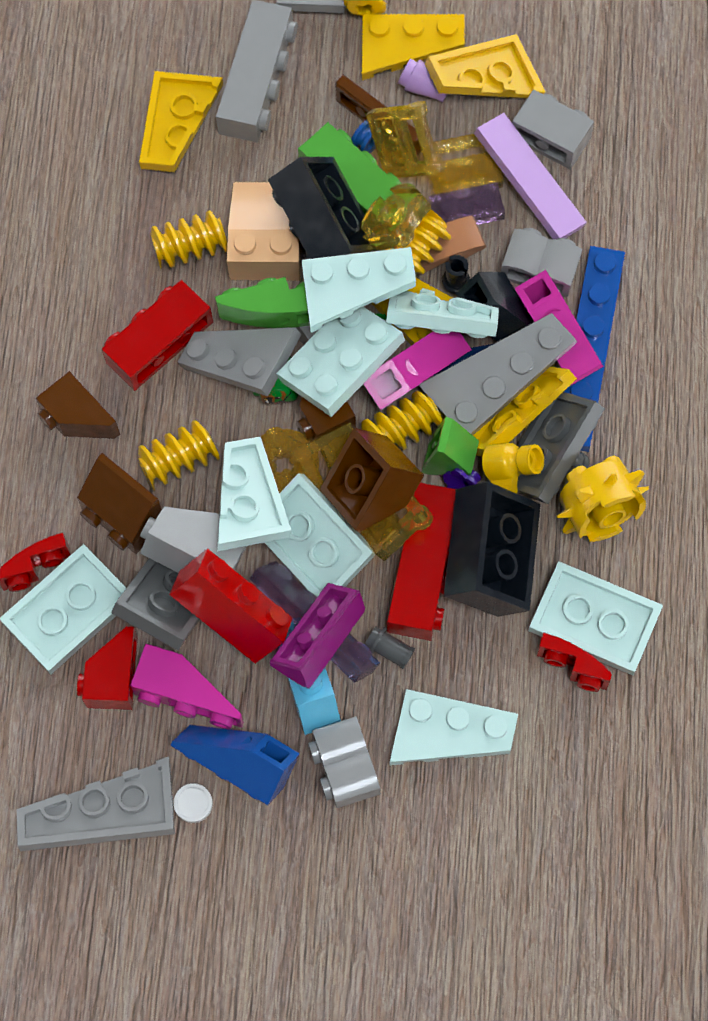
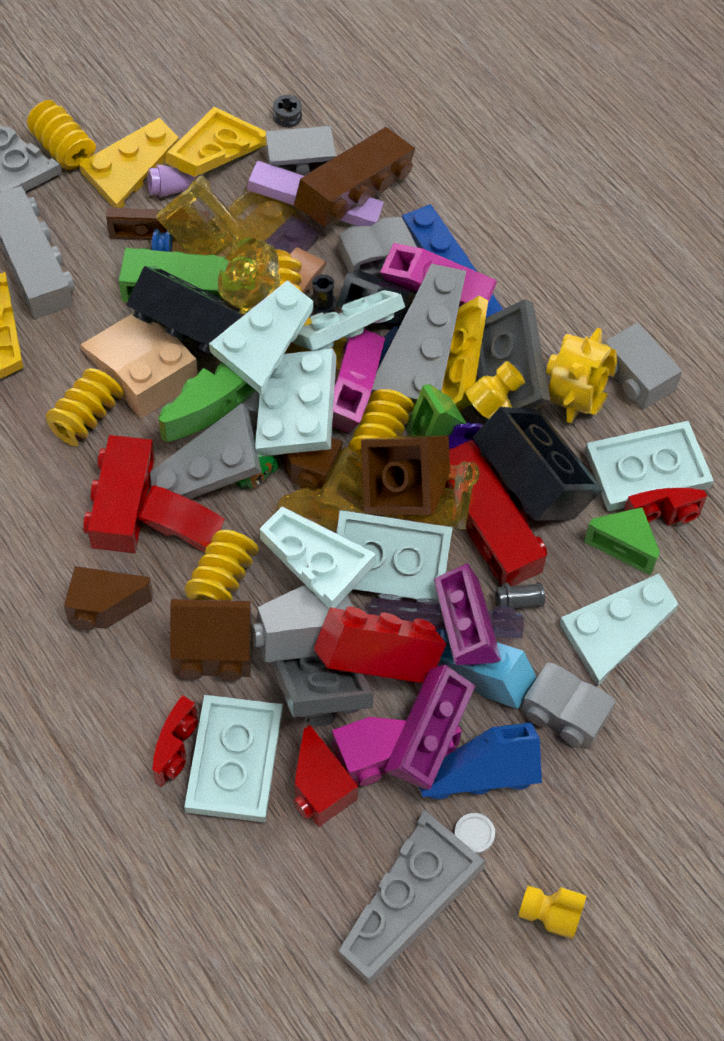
camera: 45 degrees left, 10 degrees down
(183, 388) = (180, 516): none -> red slope
(196, 909) = (557, 912): none -> yellow piece
(217, 698) = (430, 727): none -> magenta slope
(517, 662) = (626, 538): none -> bright green slope
(573, 183) = (354, 176): none -> reddish brown brick
(583, 88) = (290, 103): none -> black bush
(668, 527) = (643, 366): none -> light grey brick

